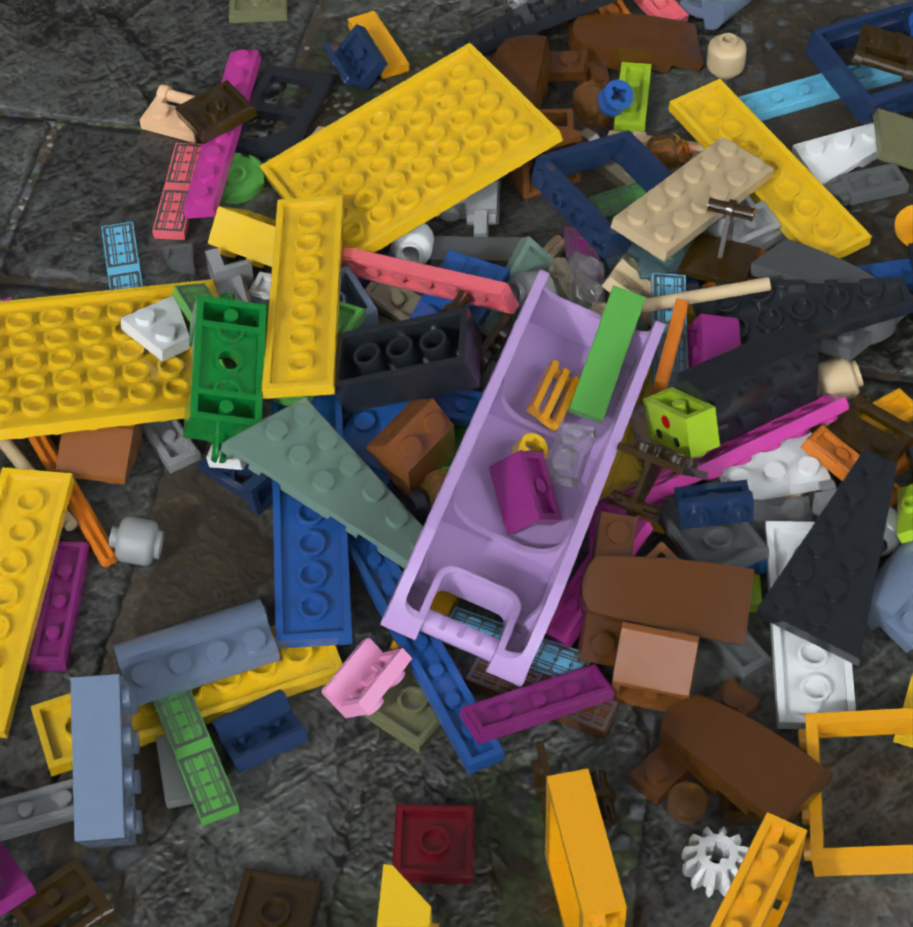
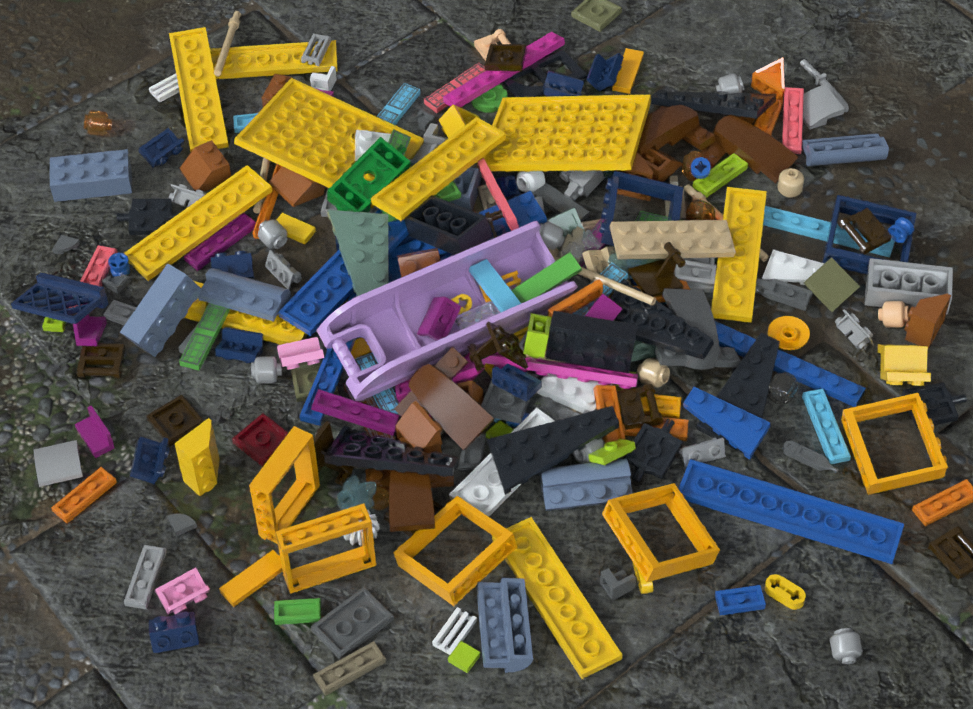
camera: 40 degrees right, 0 degrees up
(129, 618) = (237, 264): none -> dark blue bracket
(167, 510) = (296, 229): none -> yellow tile
(199, 583) = (281, 269): none -> light grey hinge
(324, 105) = (562, 85): none -> dark blue bracket
(337, 738) = (266, 370): none -> light grey head
(558, 397) = (494, 285): none -> medium azure tile
(654, 729) = (386, 453): none -> black wing
(661, 815) = (356, 493): none -> clear light blue plate

